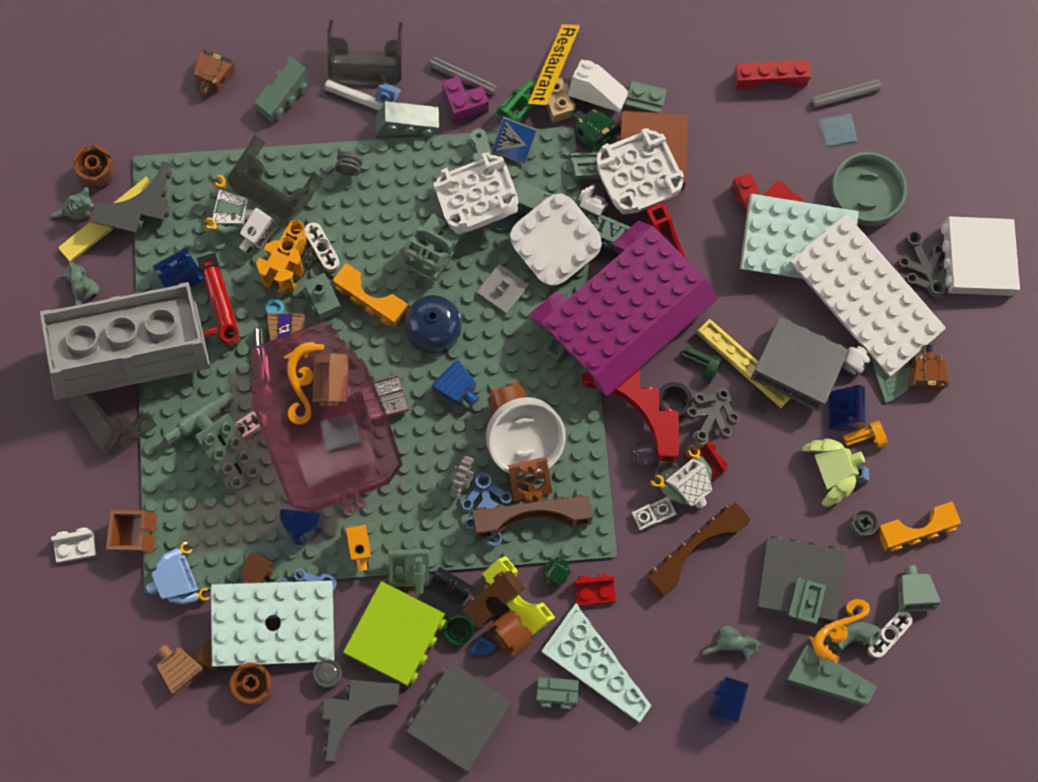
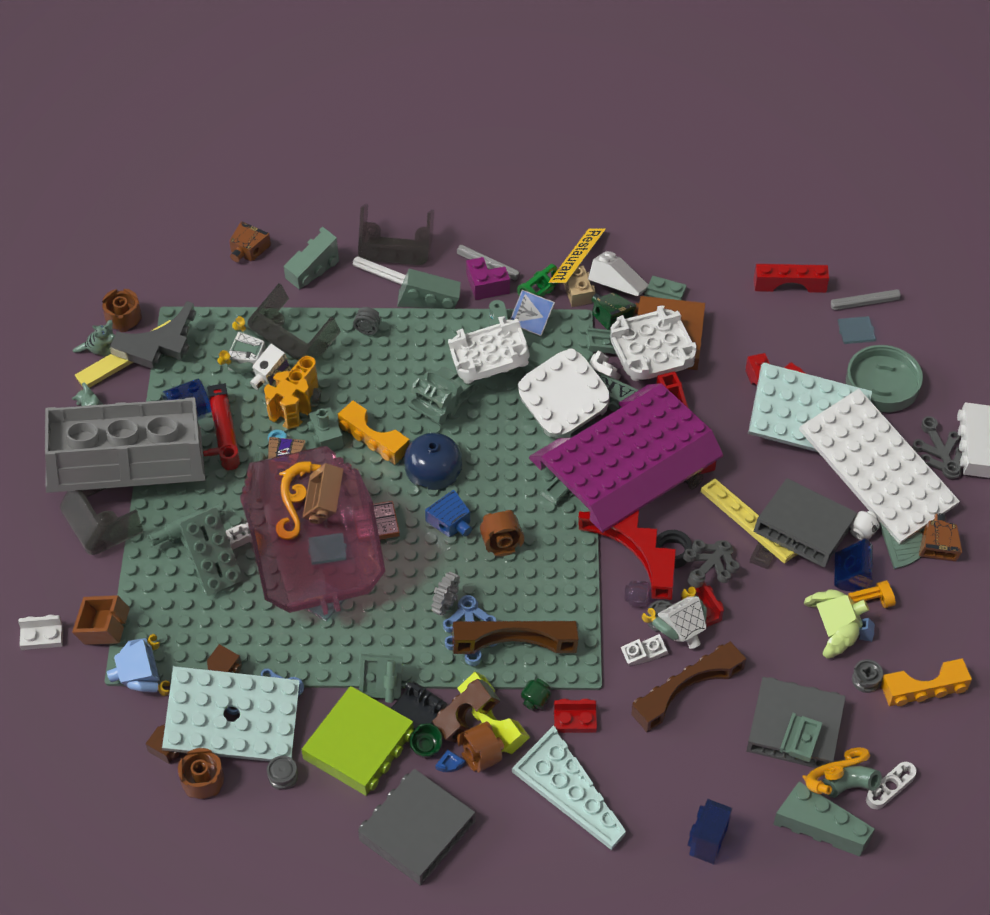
camera: 10 degrees right, 20 degrees down
(178, 668) = (127, 754): medium nougat torso -> none
(301, 525) = (275, 624): clear blue brick -> none
(314, 243) = (332, 383): white beam -> none
(343, 714) = (314, 801): dark grey arch -> none
(357, 537) = (331, 648): light orange torso -> none
(387, 93) = (410, 264): medium blue bracket -> none
(502, 288) = (507, 438): light grey piece -> none
(524, 432) = (515, 560): white brick -> none
(526, 468) = (530, 587): dark orange piece -> none
(557, 692) = (525, 810): sand green brick -> none
(712, 363) = (714, 519): dark green piece -> none
(732, 641) = (719, 775): sand green animal -> none
(916, 592) = (922, 744): sand green torso -> none

